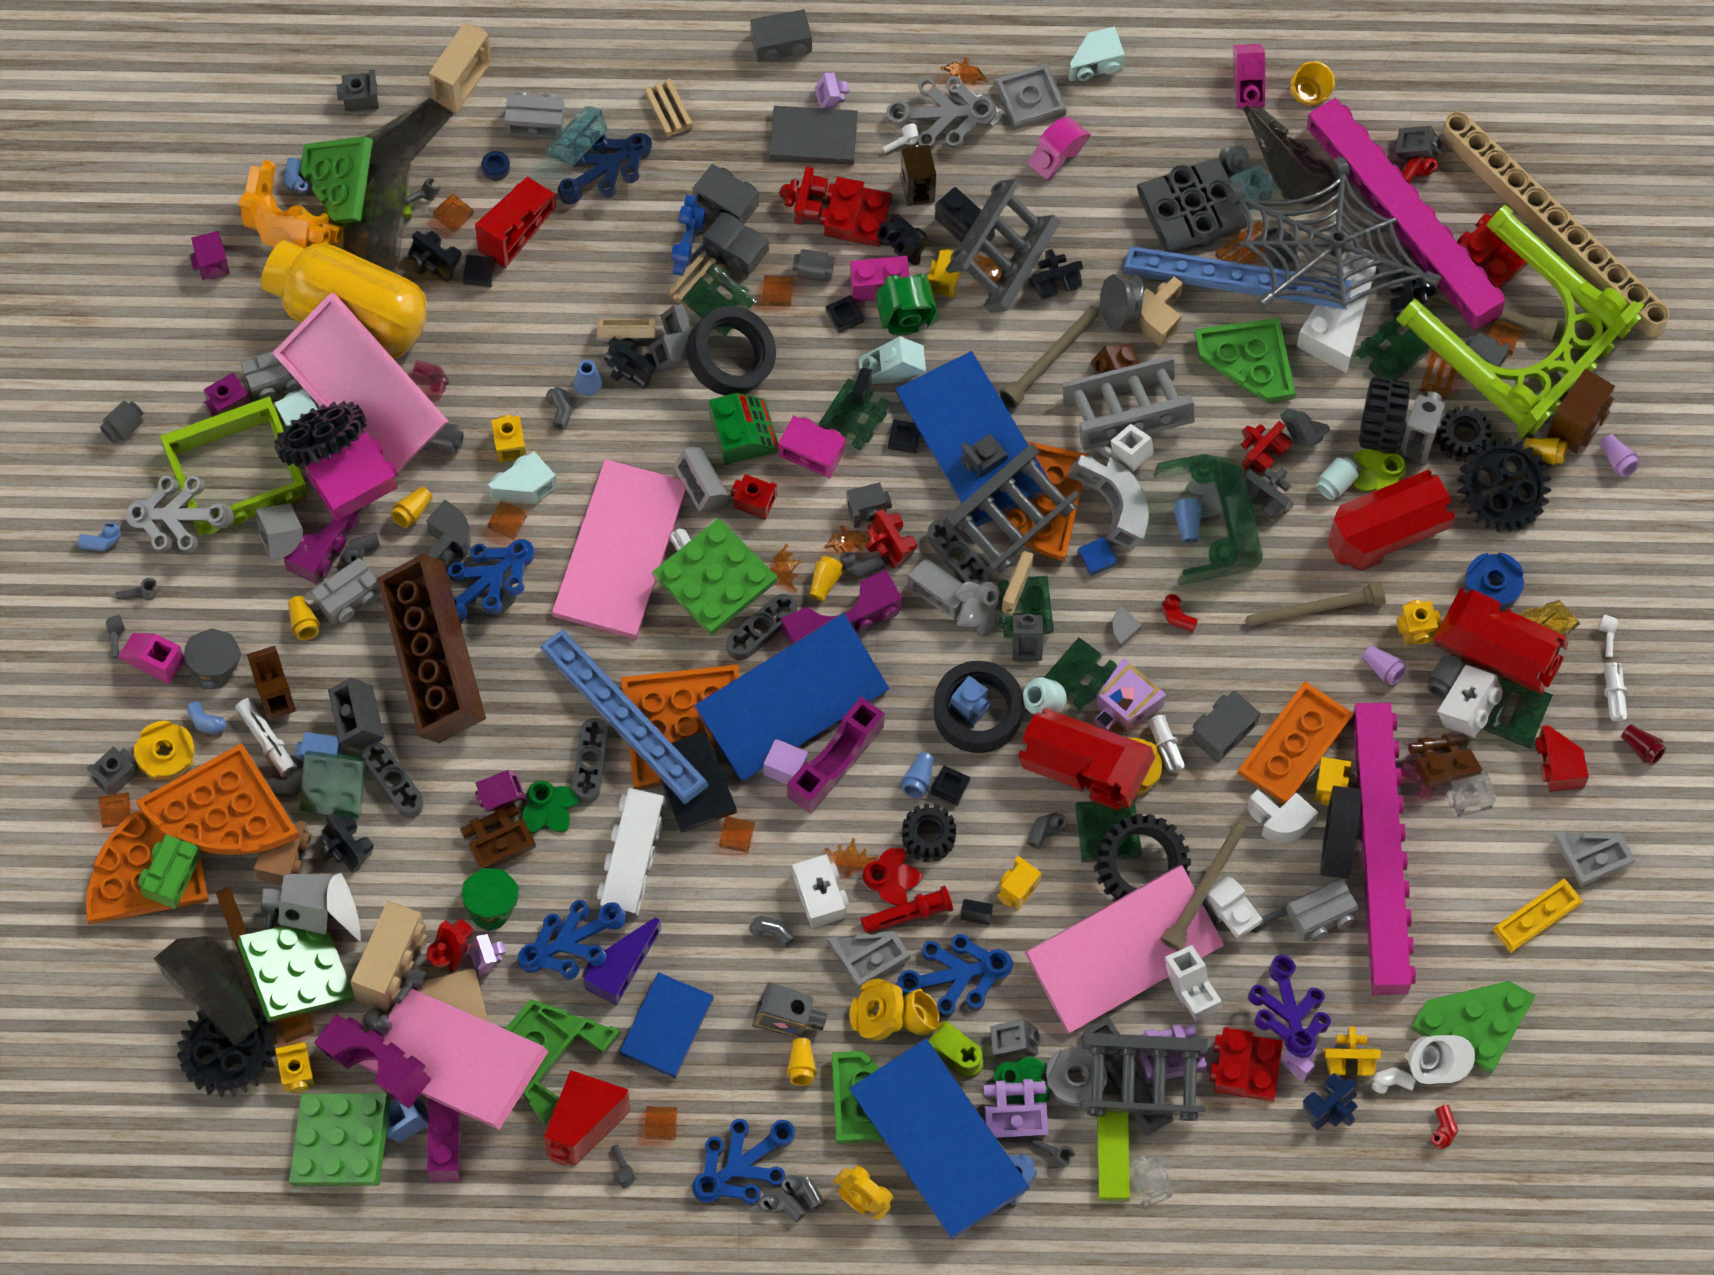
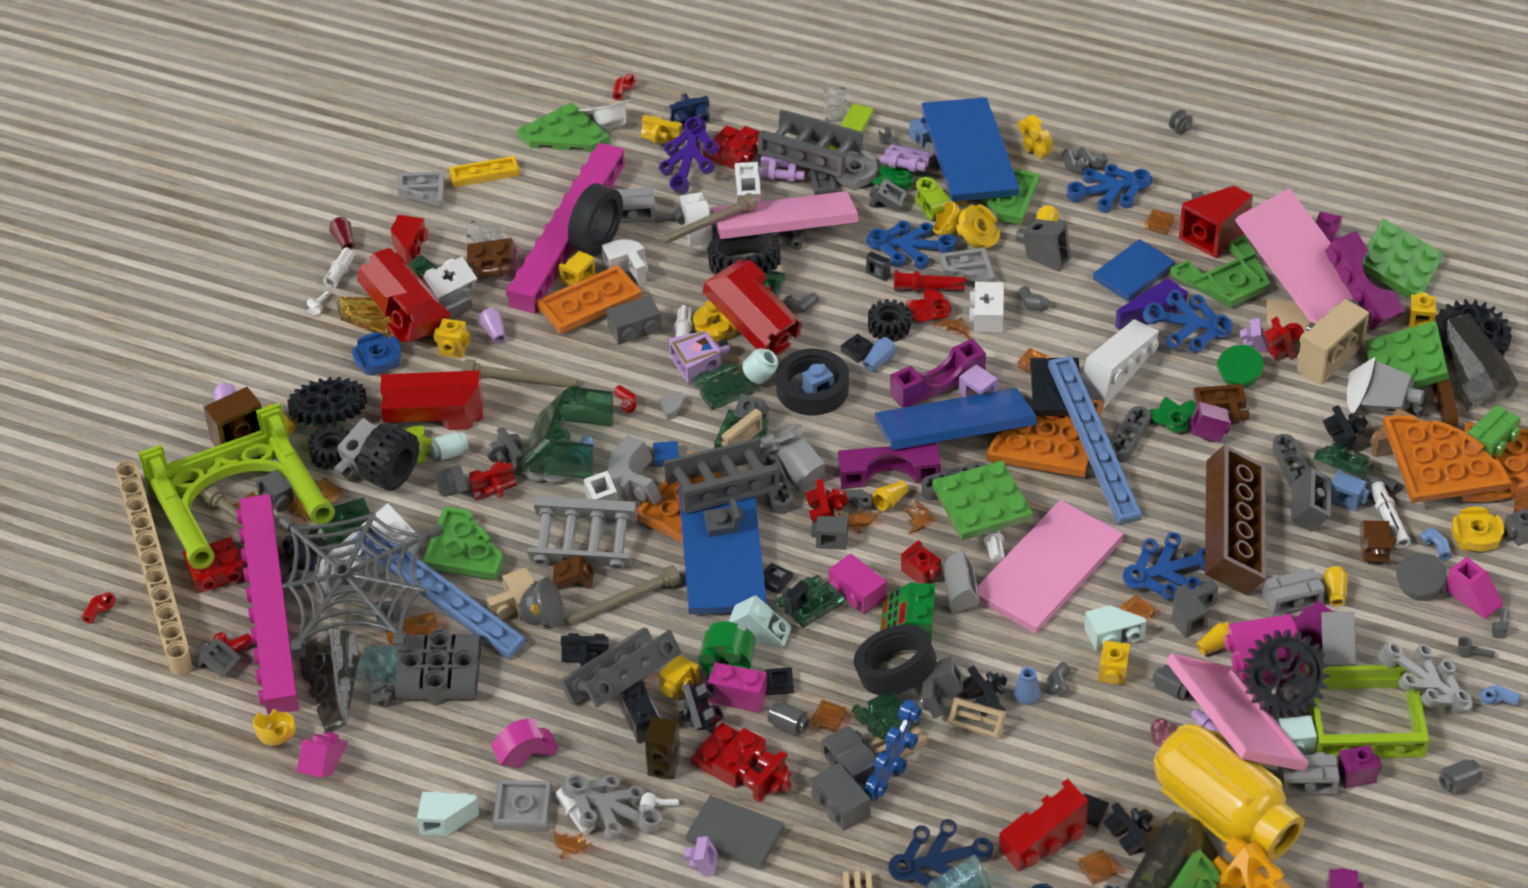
camera: 155 degrees left, 20 degrees down
(1019, 883) = (838, 273): yellow brick -> none
(1390, 1077) = (636, 117): white arm -> none
(1581, 166) = (97, 605): none -> red arm

